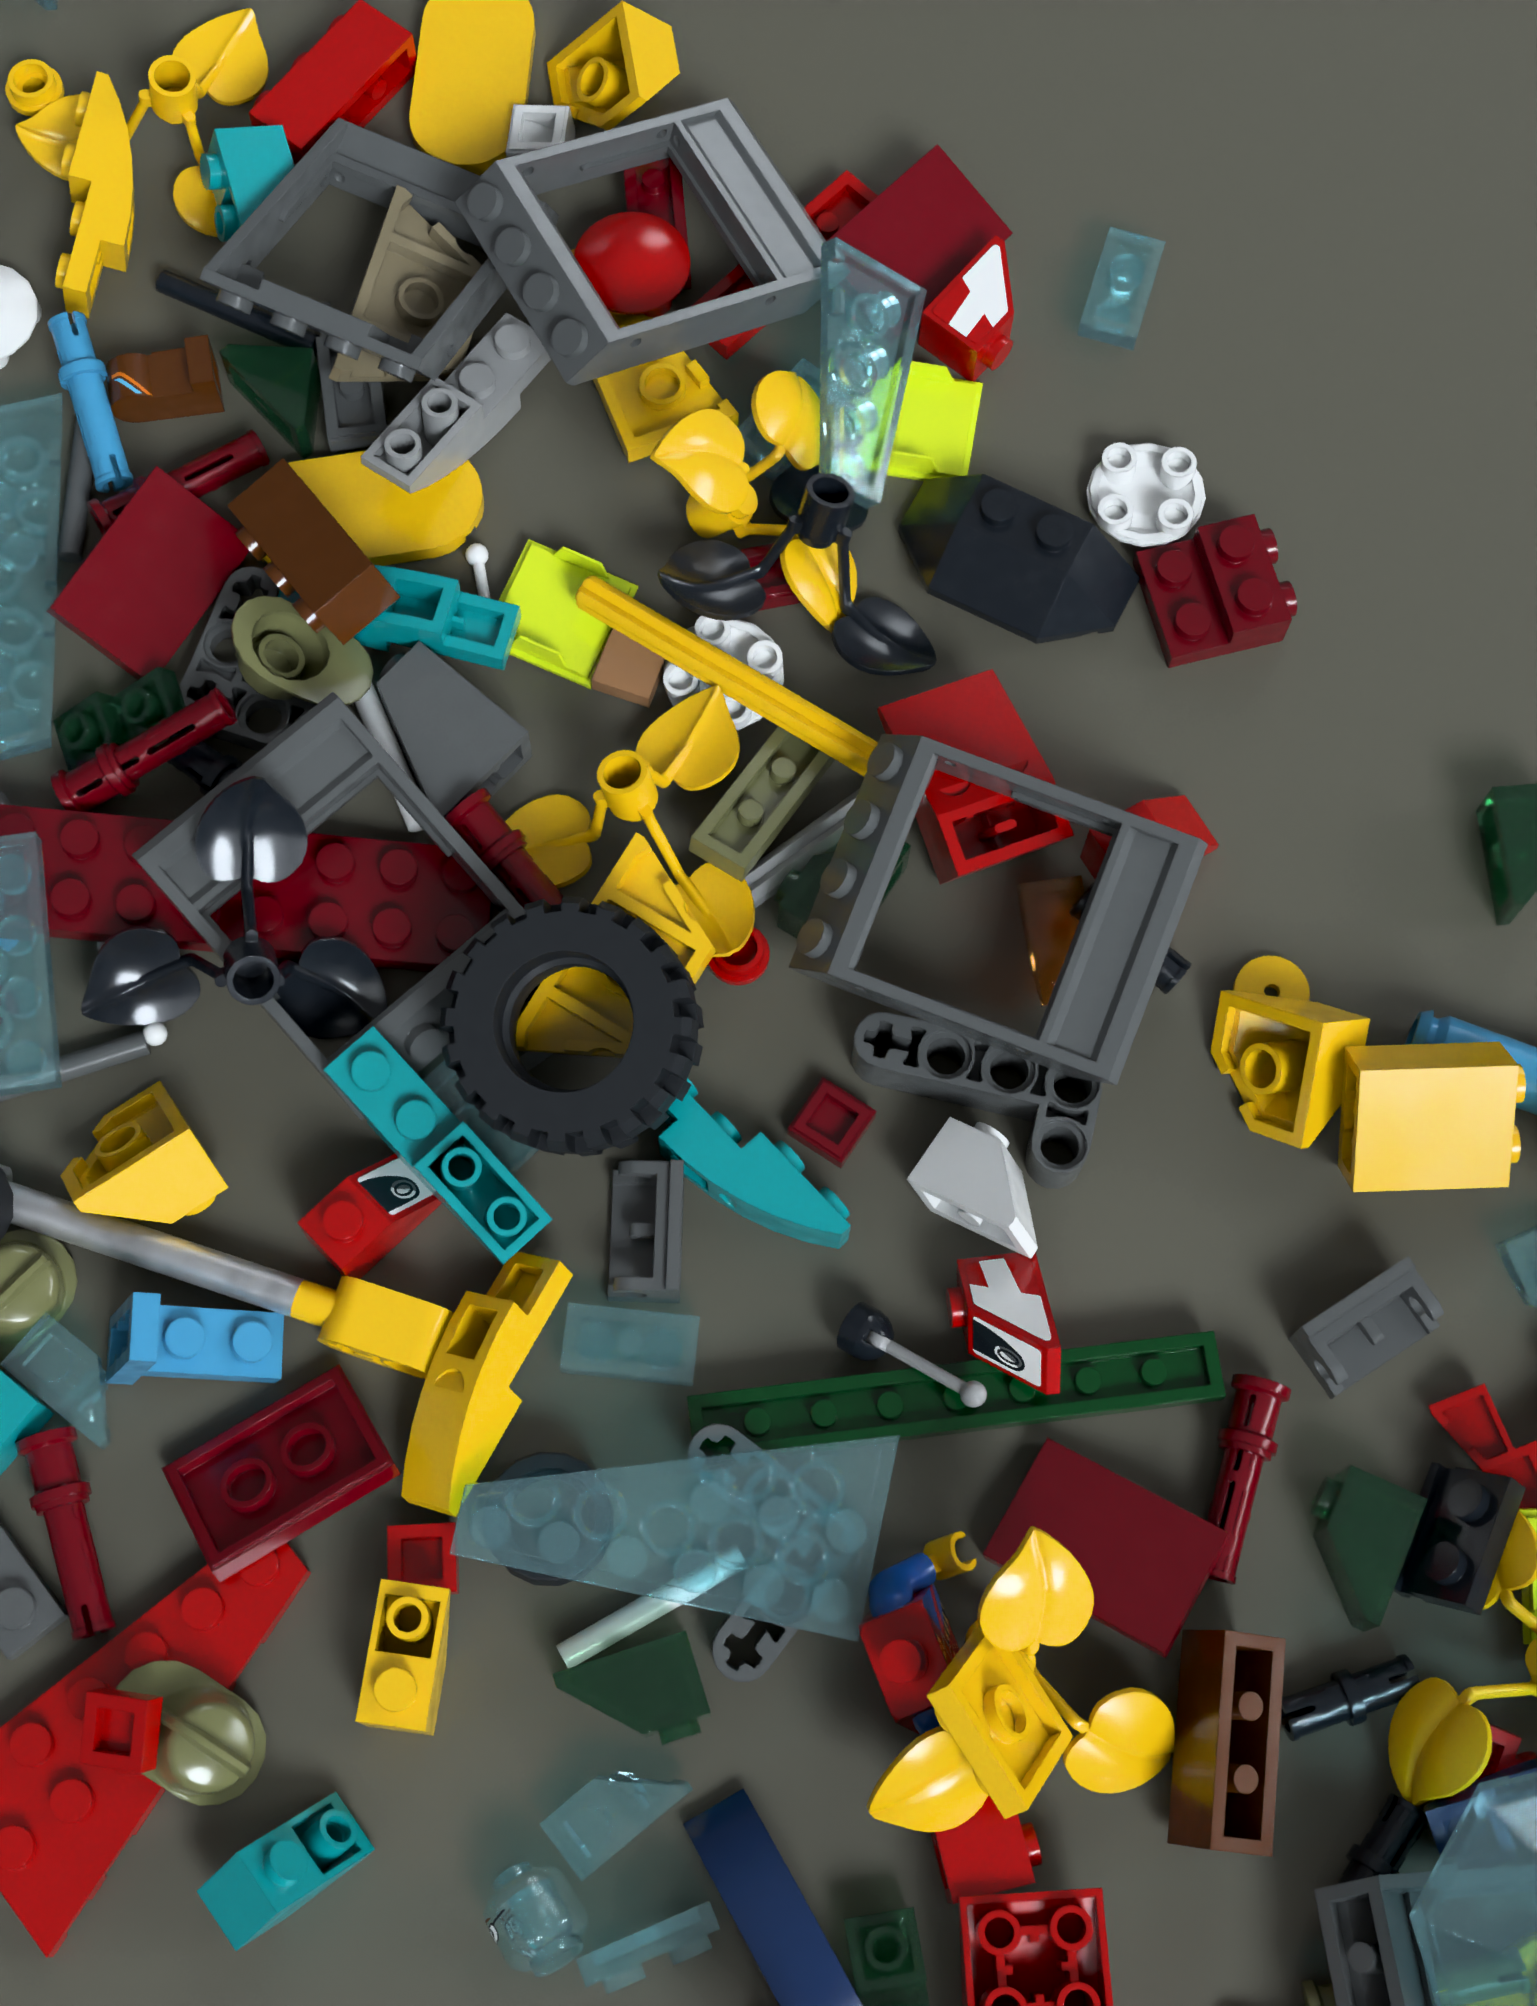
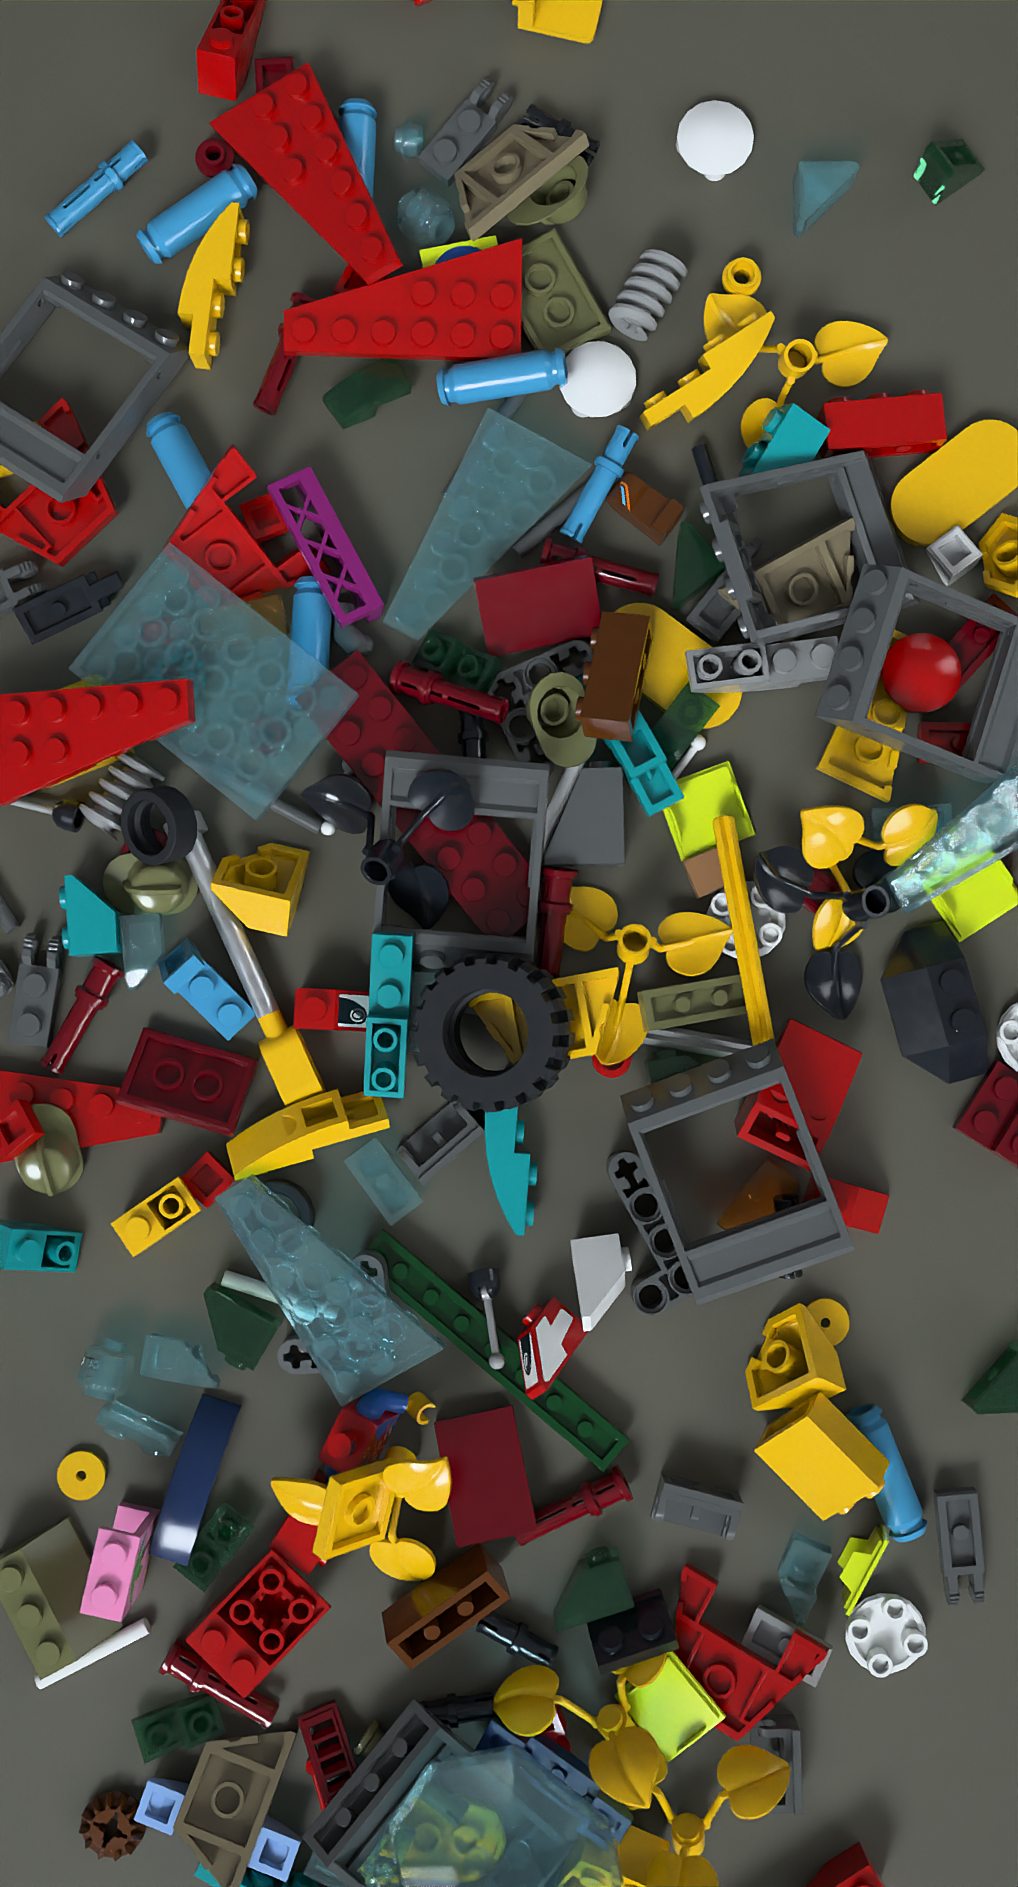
camera: 50 degrees right, 15 degrees up
(437, 534) = (683, 723): none -> clear green slope
(831, 1122) = (571, 1175): dark red tile -> none

